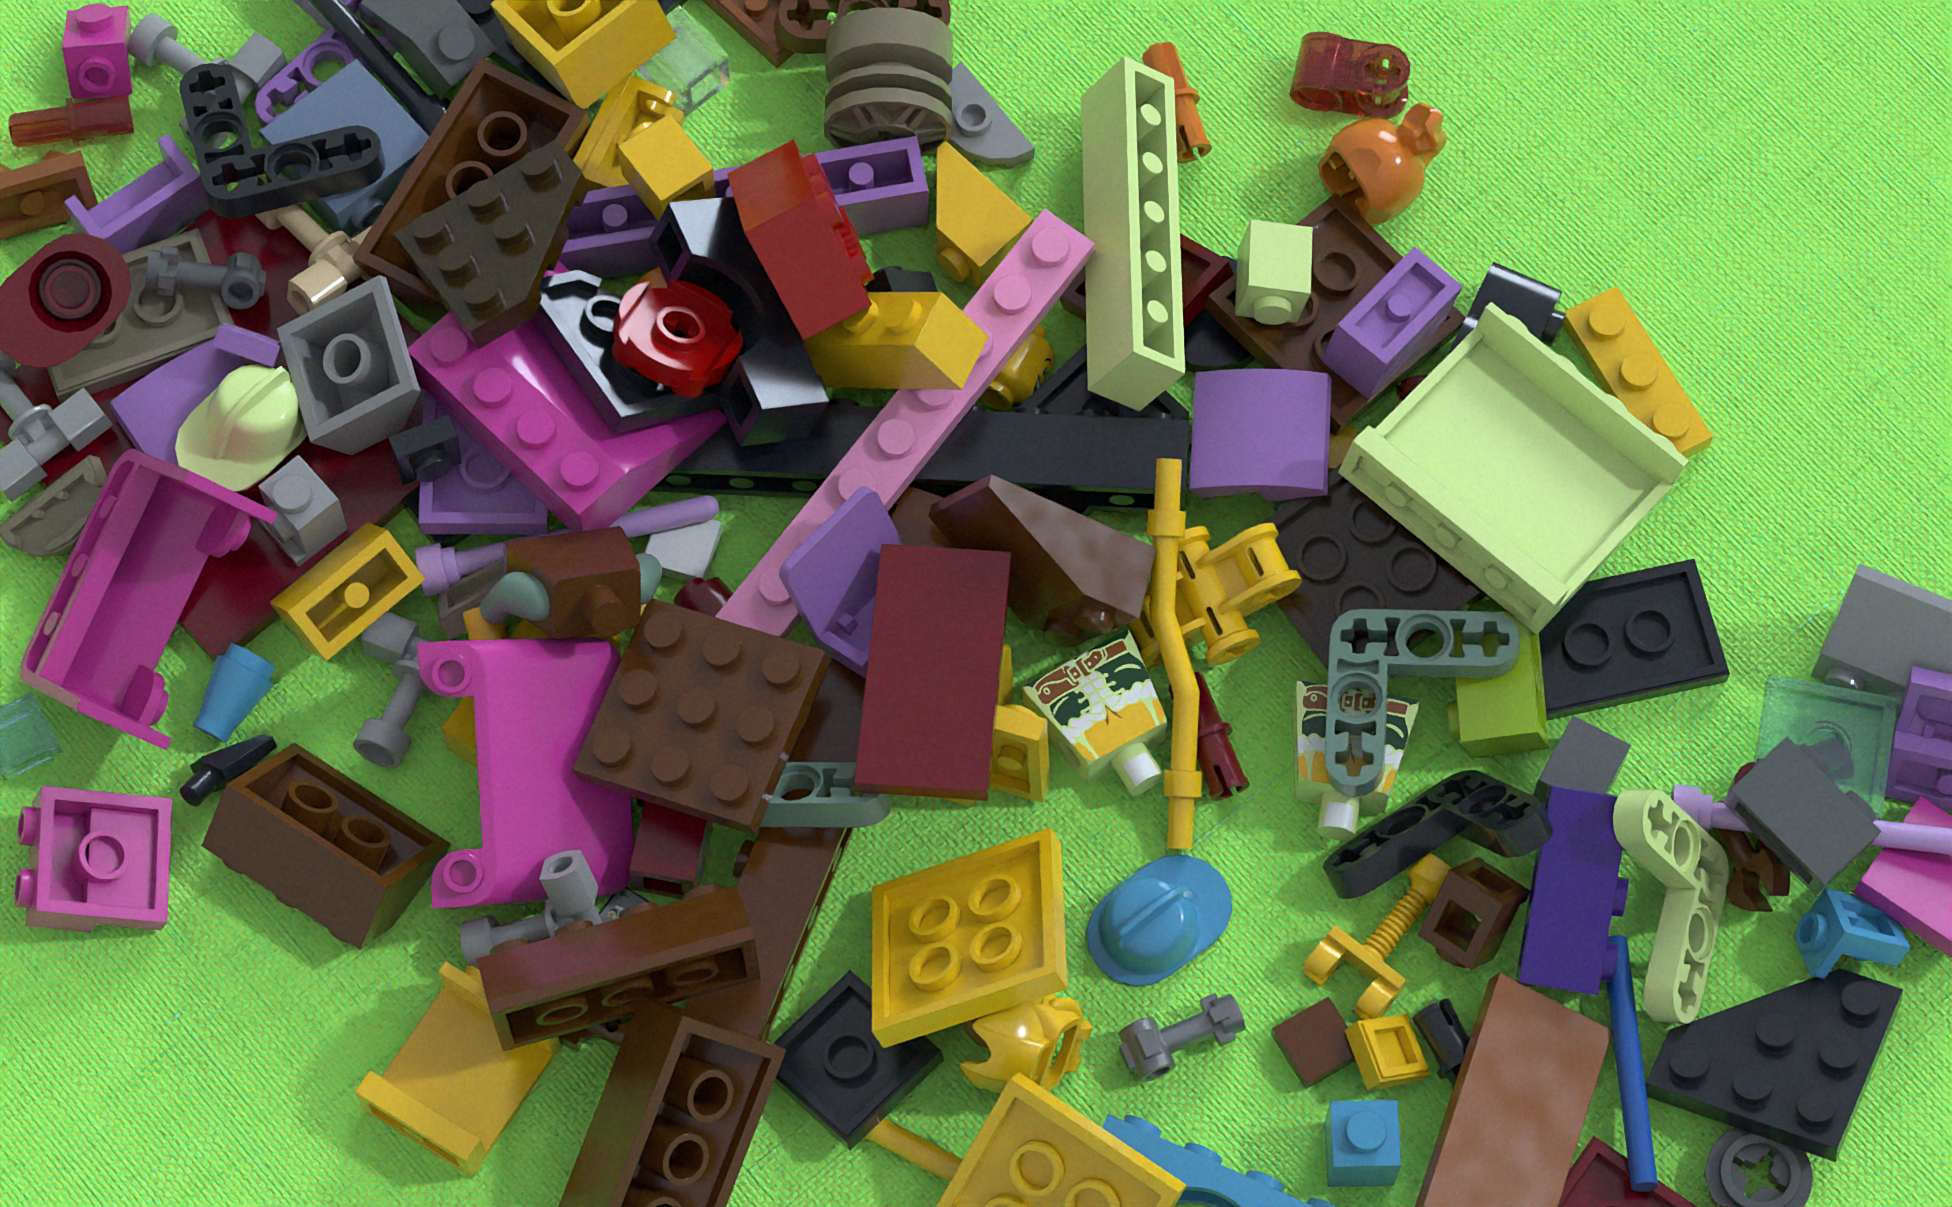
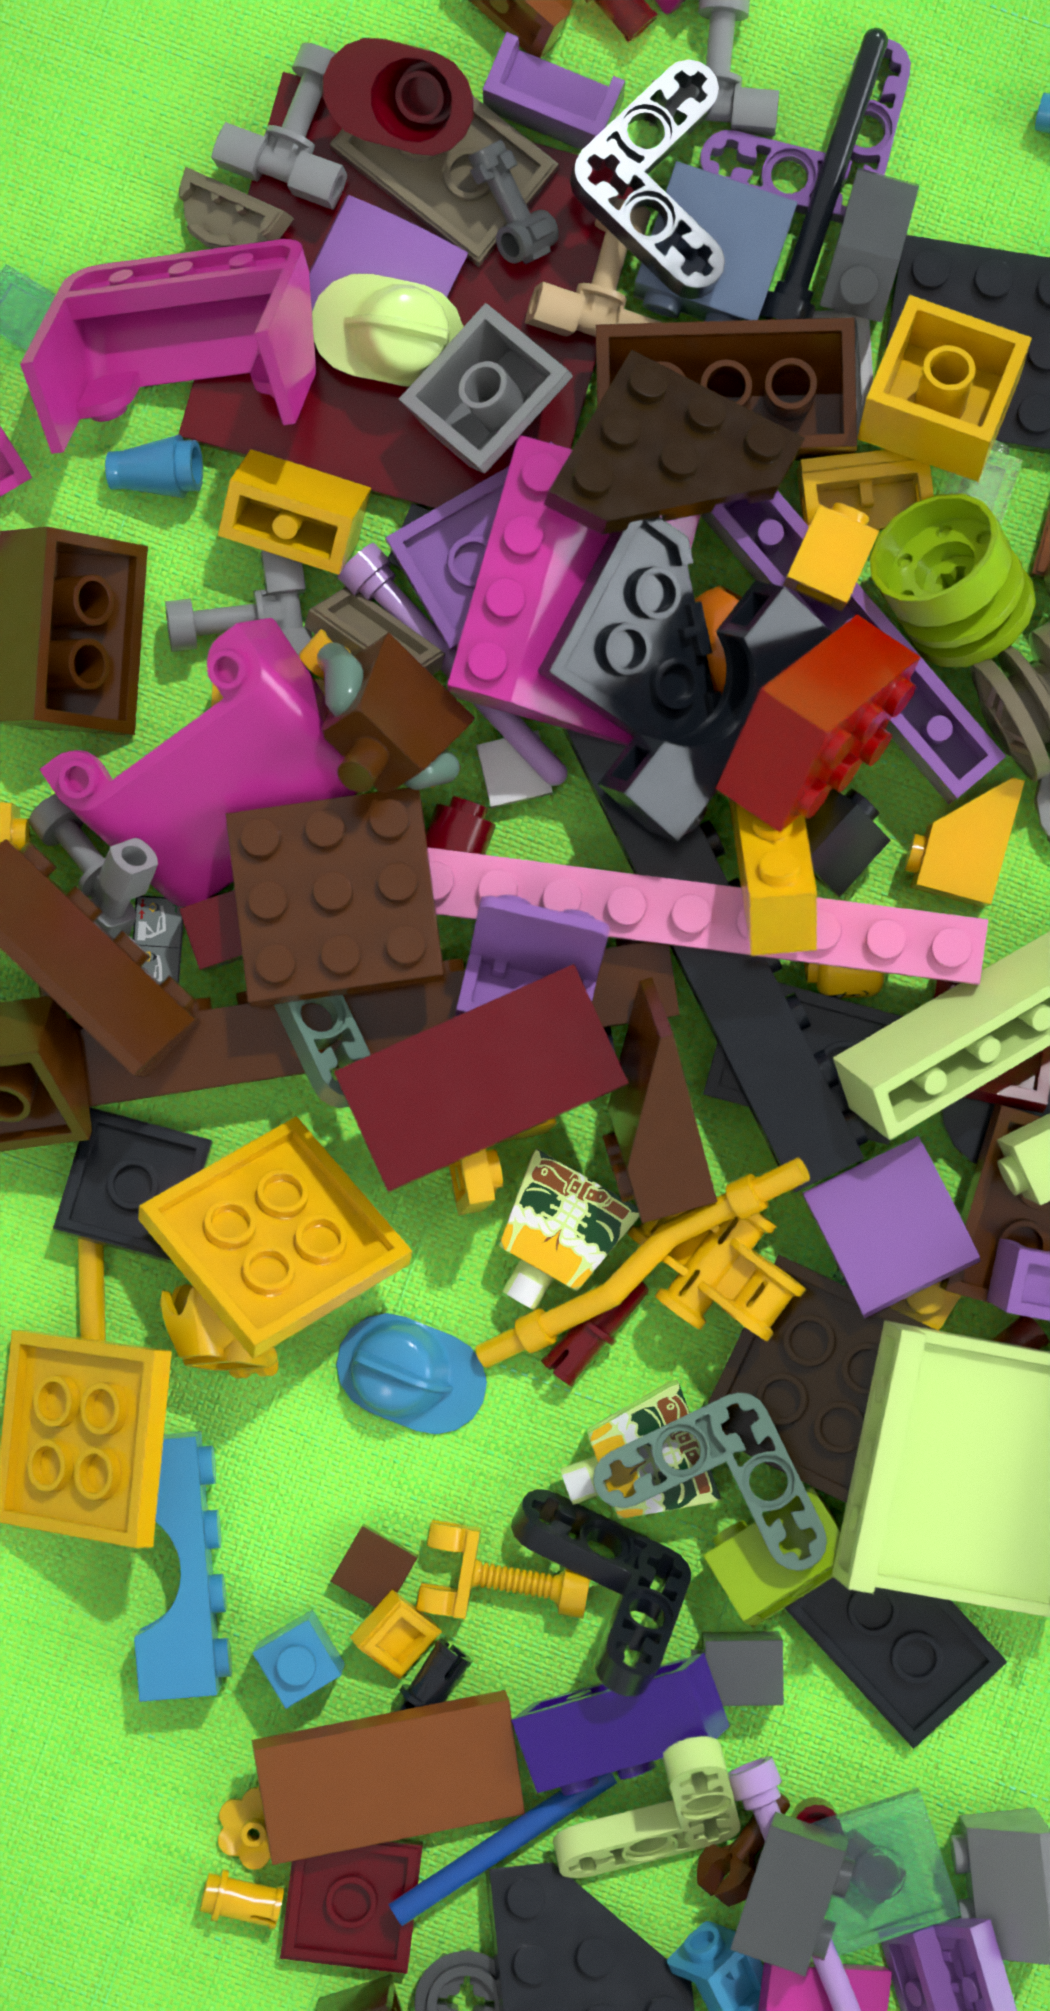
camera: 65 degrees right, 20 degrees up
(224, 765) = (89, 502): black bar -> none
(248, 344) = (458, 285): medium lavender tile -> none
(306, 511) = (340, 425): light grey brick -> none
(425, 451) = (443, 507): black plate -> none
(646, 340) = (633, 672): red plate -> none
(744, 95) = (953, 580): none -> lime wheel
(1149, 1049) = (285, 1431): flat silver bar -> none
(1469, 892) = (553, 1646): reddish brown brick -> none

